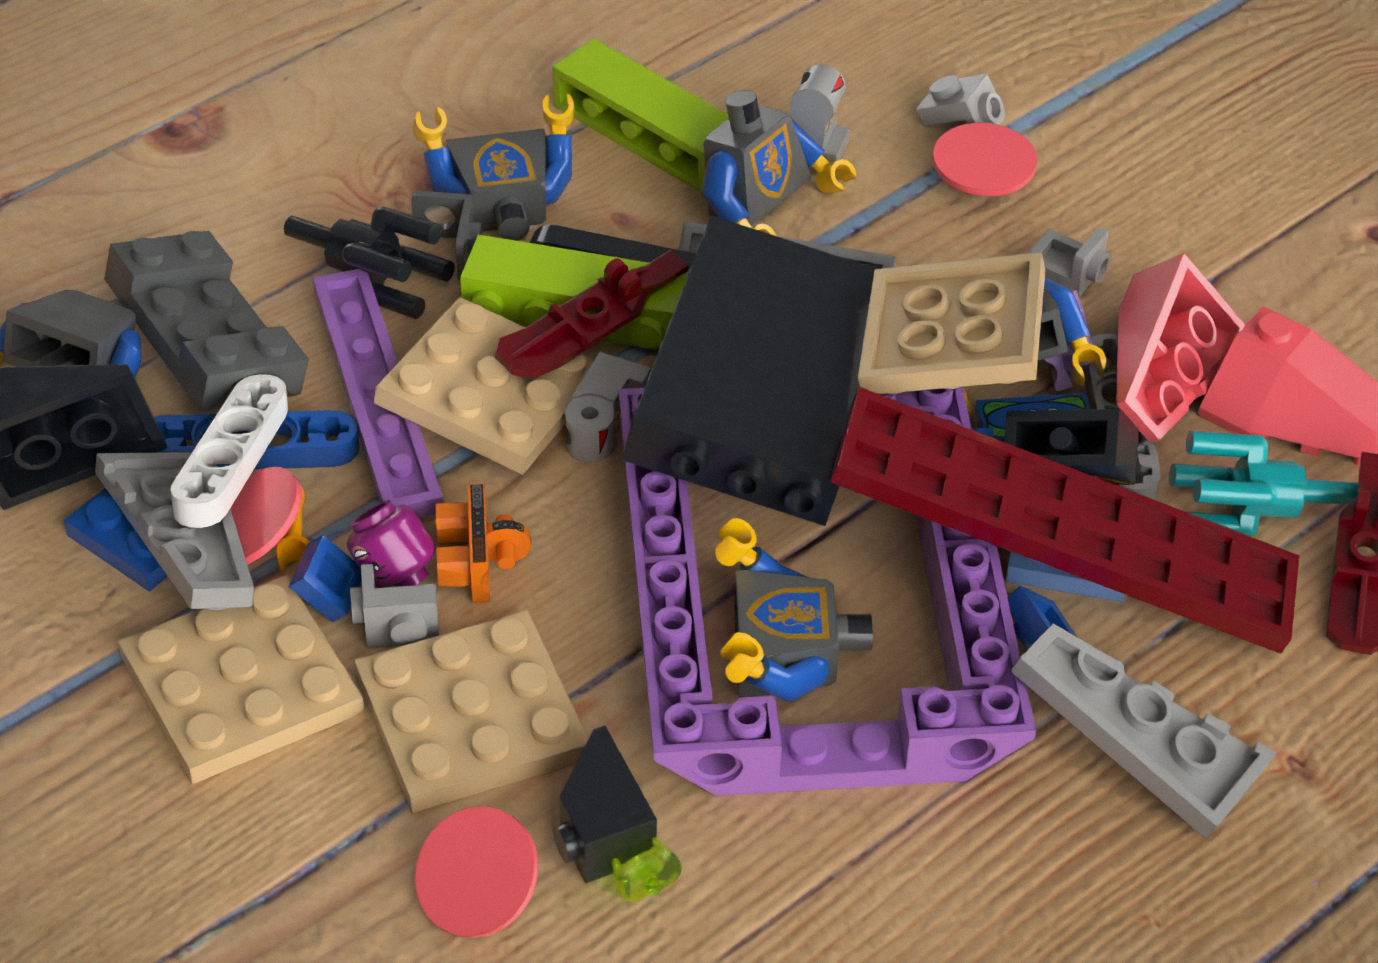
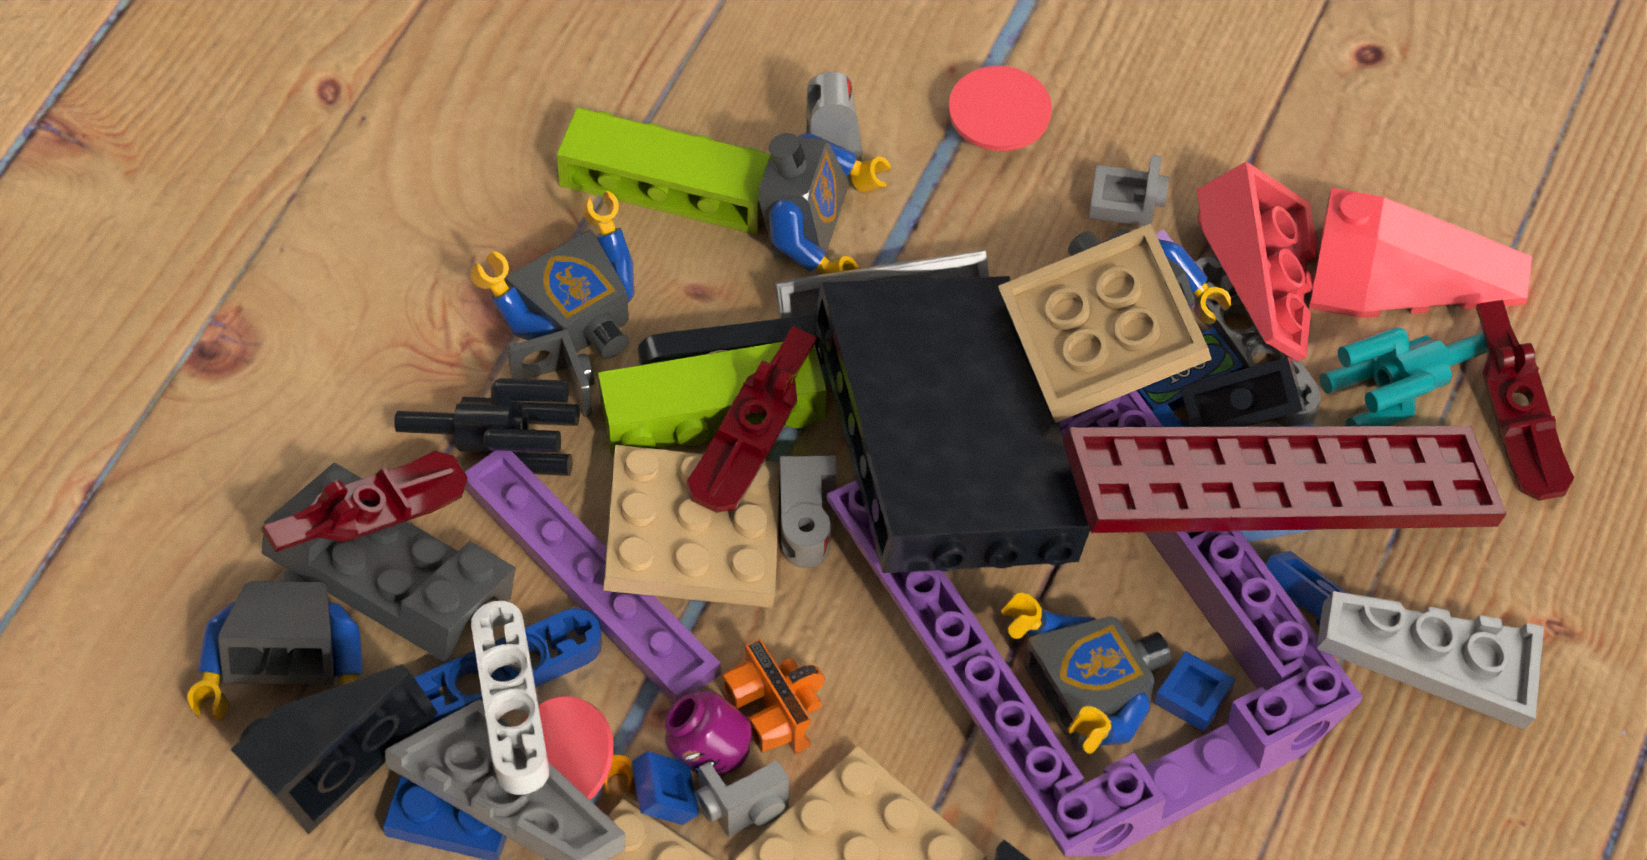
camera: 25 degrees left, 10 degrees up
(233, 267) = (395, 494): none -> dark red piece
(877, 678) = (1194, 691): none -> blue plate
(961, 99) = (943, 49): light grey bracket -> none

